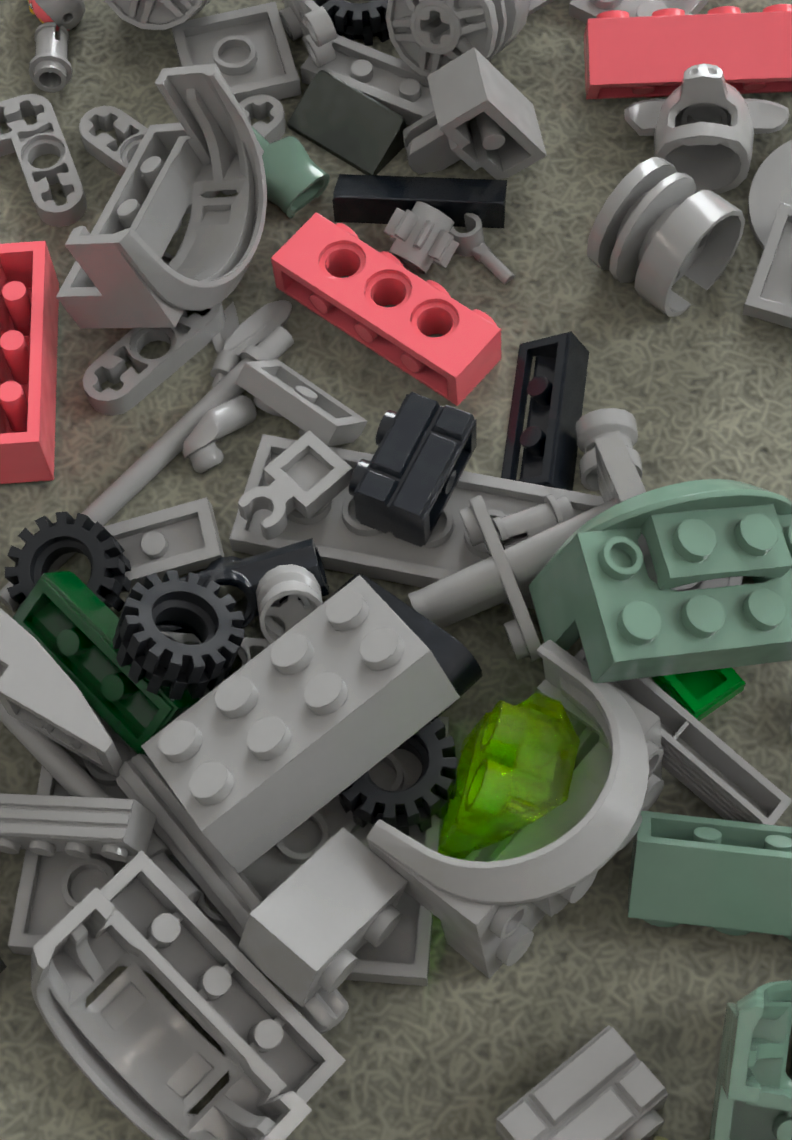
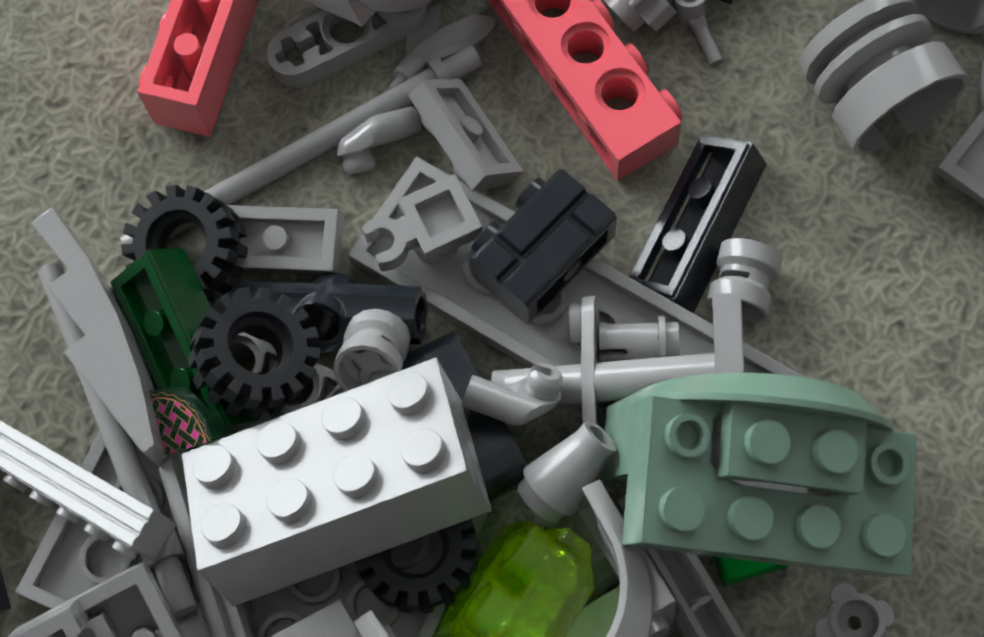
camera: 20 degrees right, 10 degrees up
(131, 717) = (185, 420): none -> clear green tile
(447, 601) = (520, 401): none -> light grey arm
(509, 655) = (556, 478): none -> light grey cone

